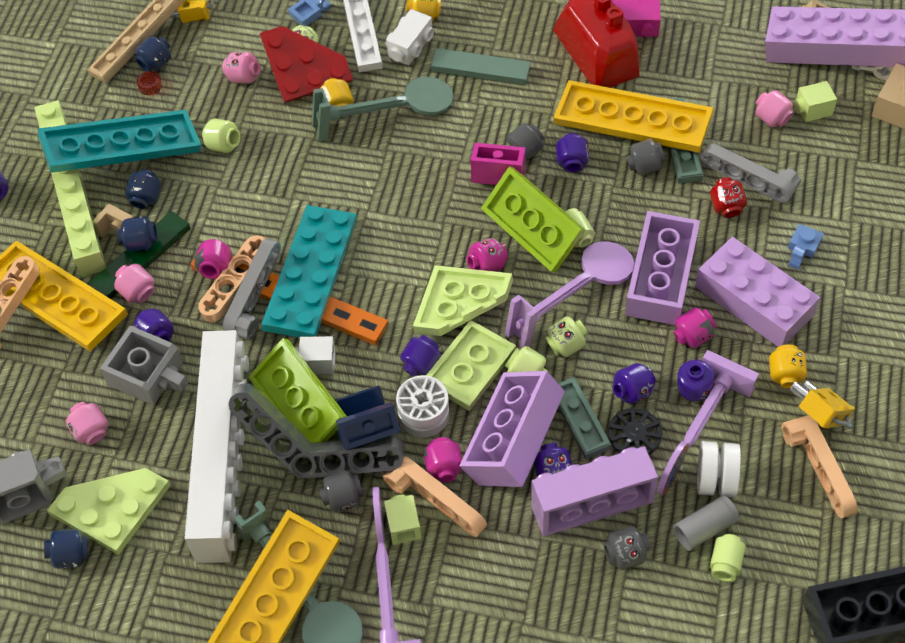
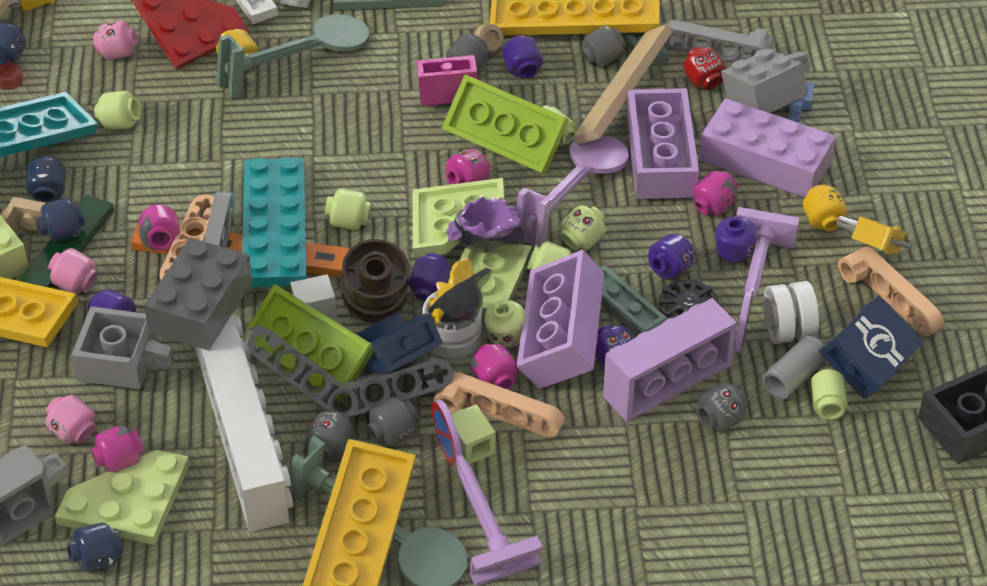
camera: 20 degrees left, 10 degrees down
(113, 461) = (117, 448): none -> dark pink head
(207, 342) = (198, 293): none -> dark grey brick
(285, 492) = (334, 430): none -> dark grey head
(364, 337) = (374, 280): none -> dark brown wheel
(374, 273) = (348, 209): none -> yellowish green head
(426, 392) = (460, 296): none -> black hair
(465, 417) = (505, 323): none -> yellowish green head
(477, 321) = (486, 225): none -> medium lavender hair
(550, 127) = (491, 35): none -> tan tile
(648, 201) = (625, 79): none -> tan tile
(778, 225) = (767, 79): none -> light grey hinge
(781, 523) = (871, 347): none -> dark blue panel

